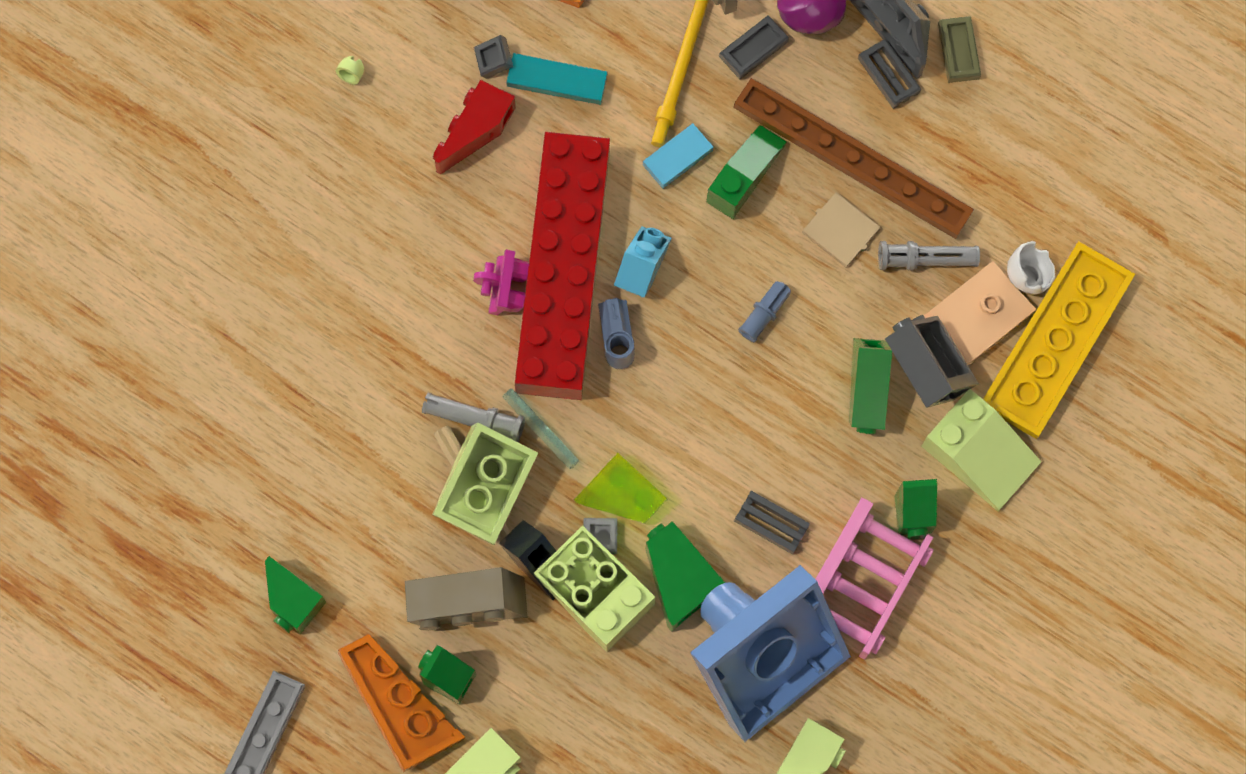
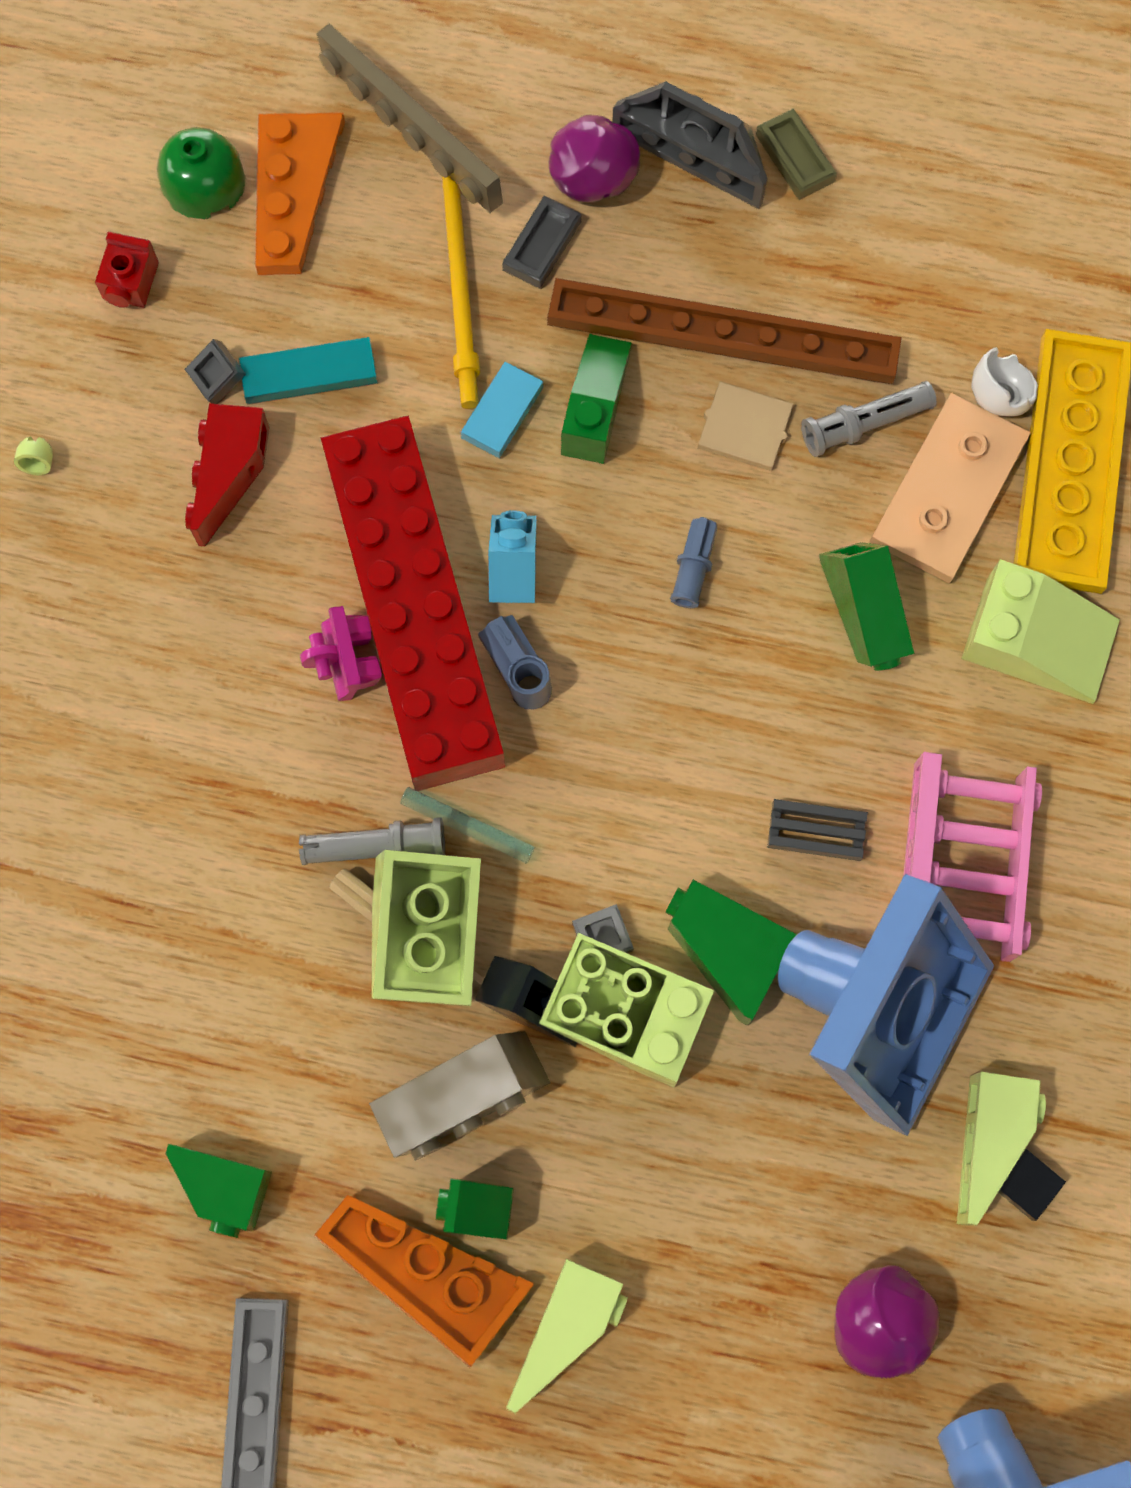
camera: 20 degrees left, 0 degrees up
(622, 492) = (609, 867): clear neon green wing -> none
(878, 79) = (717, 218): dark grey tile -> none
(916, 508) = (998, 738): green slope -> none
(931, 360) = (938, 540): dark grey window -> none

